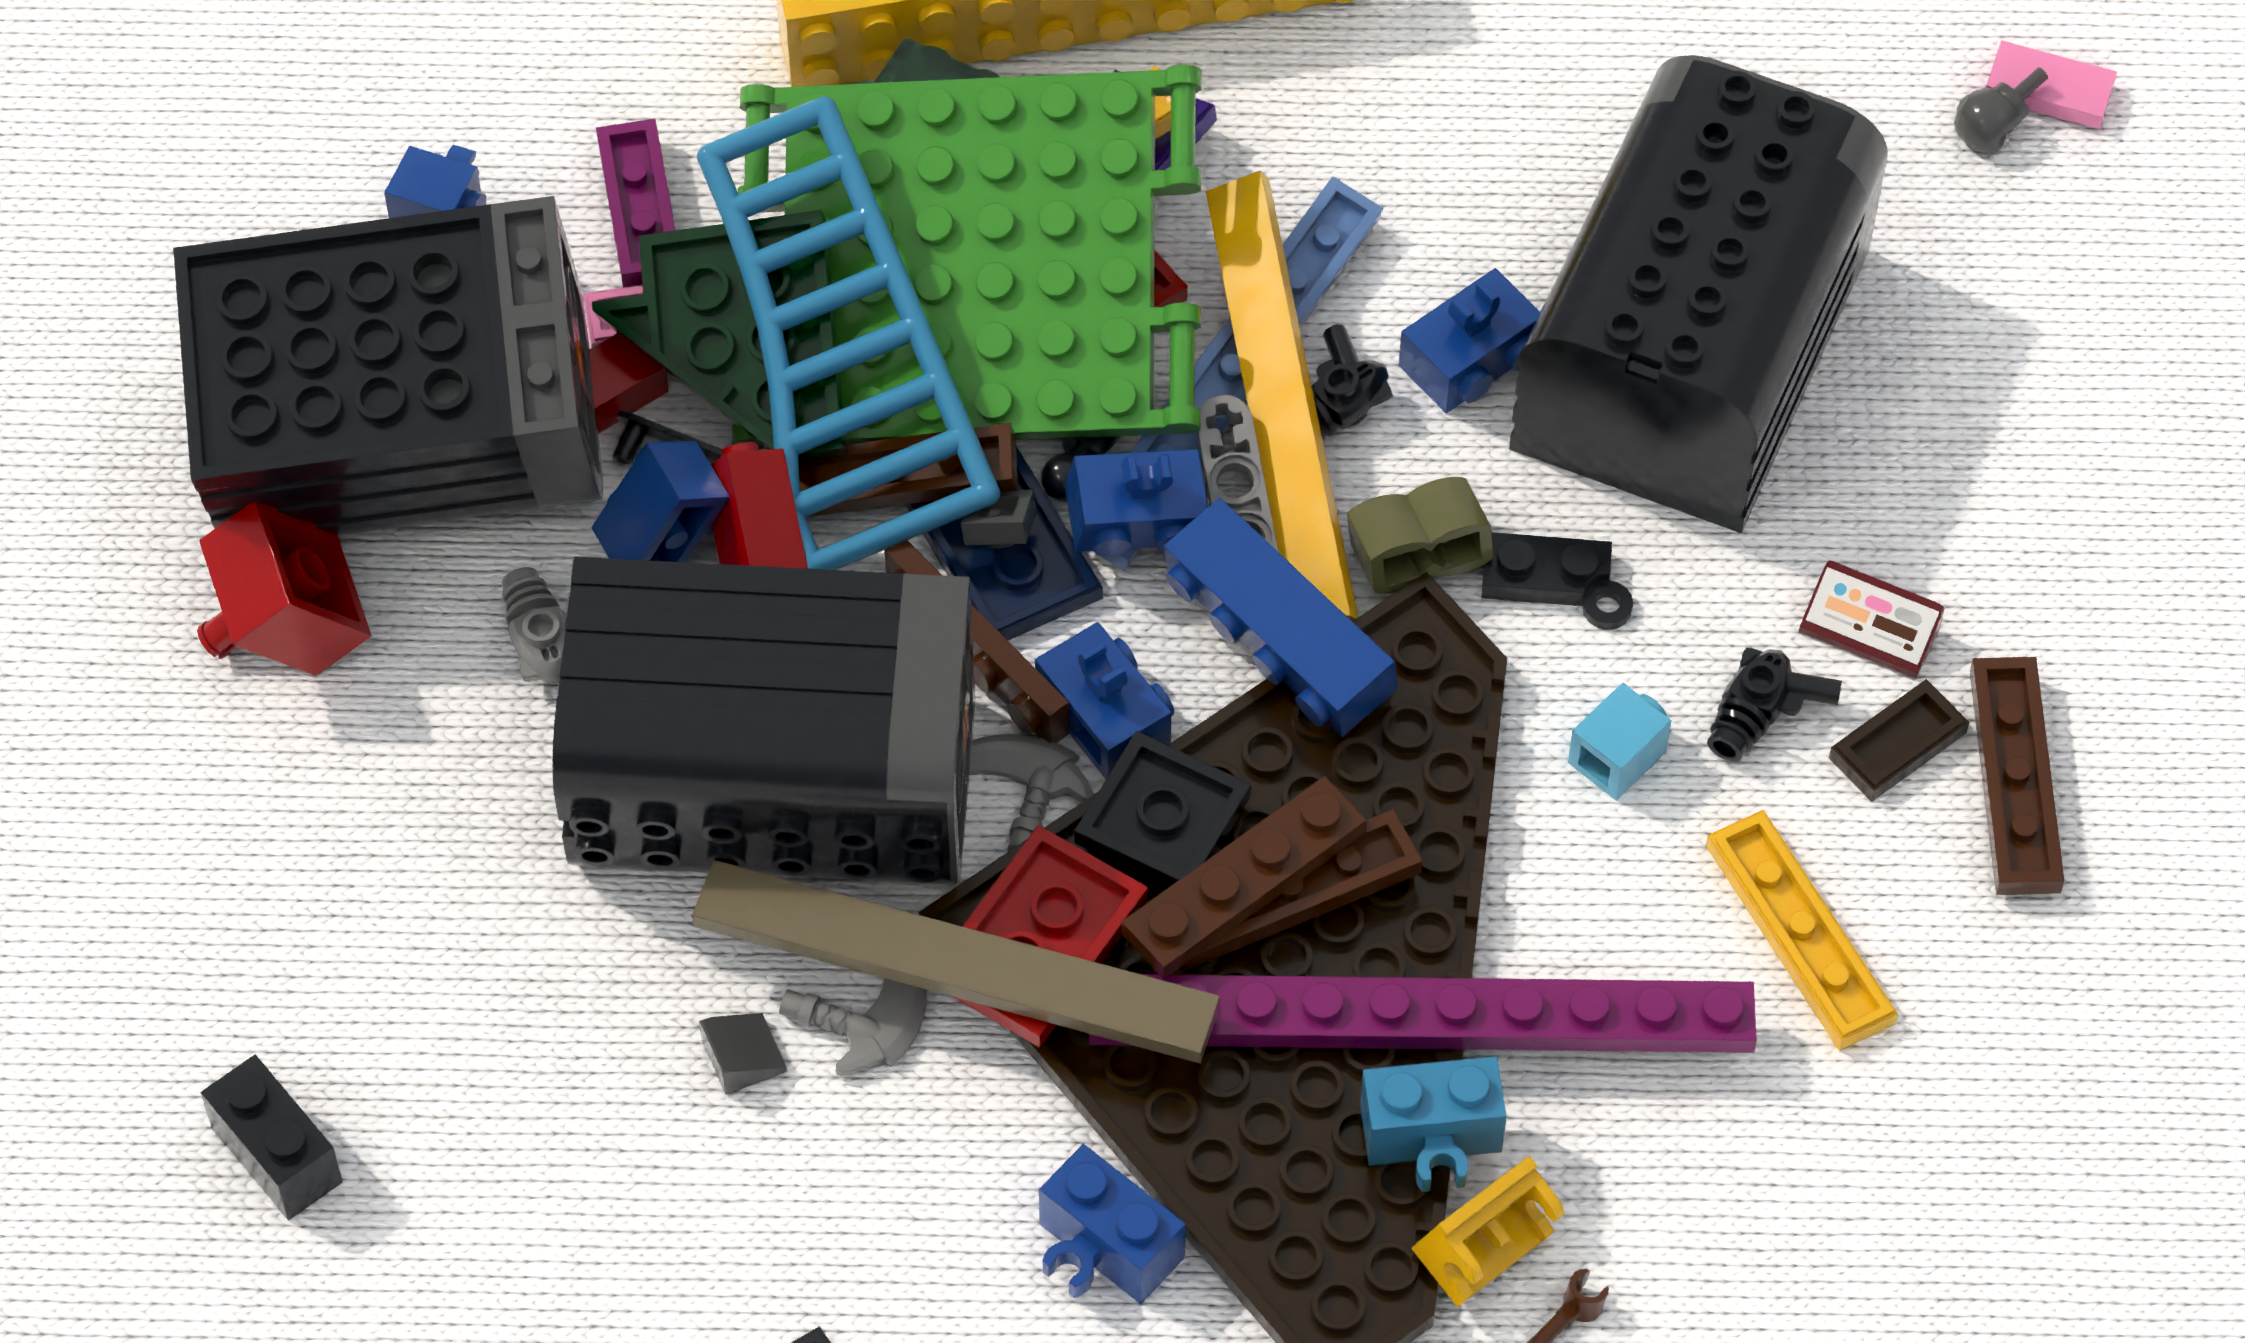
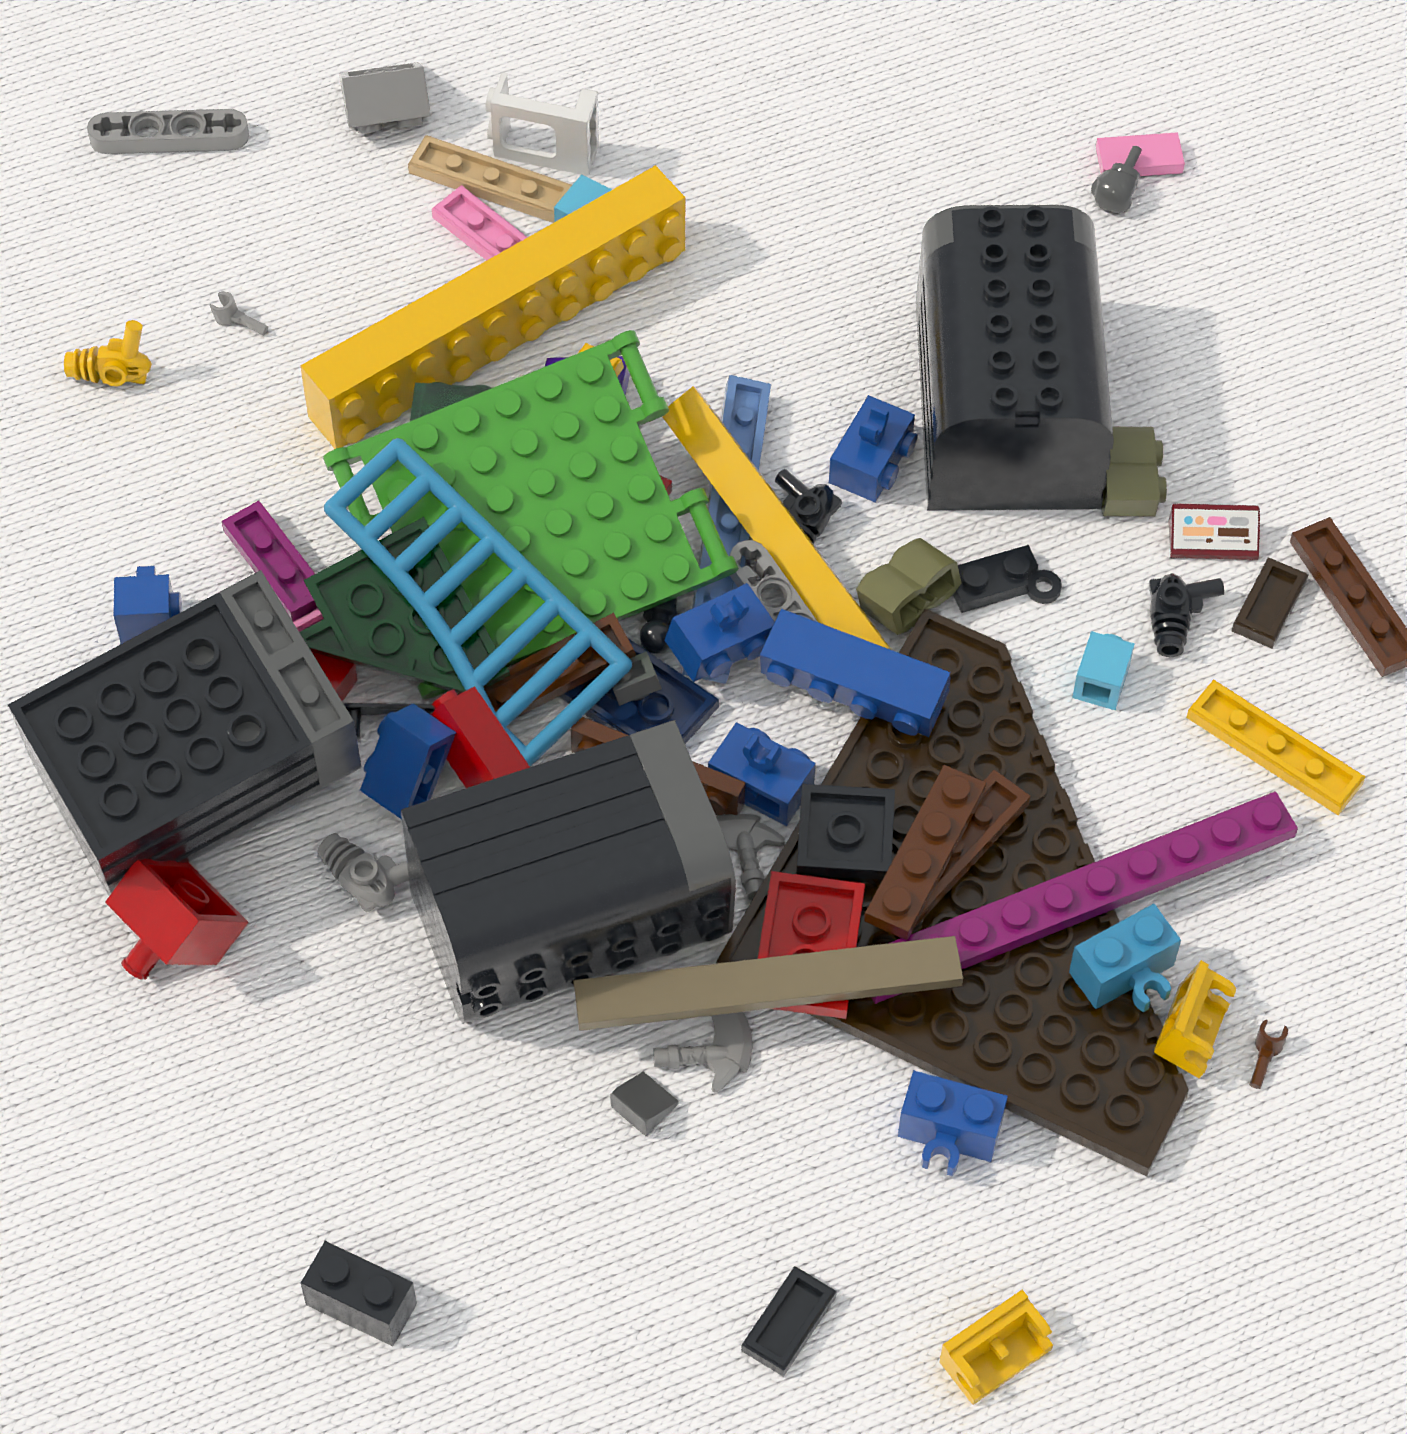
camera: 25 degrees left, 0 degrees up
(1798, 496) = (1133, 474): none -> olive brick

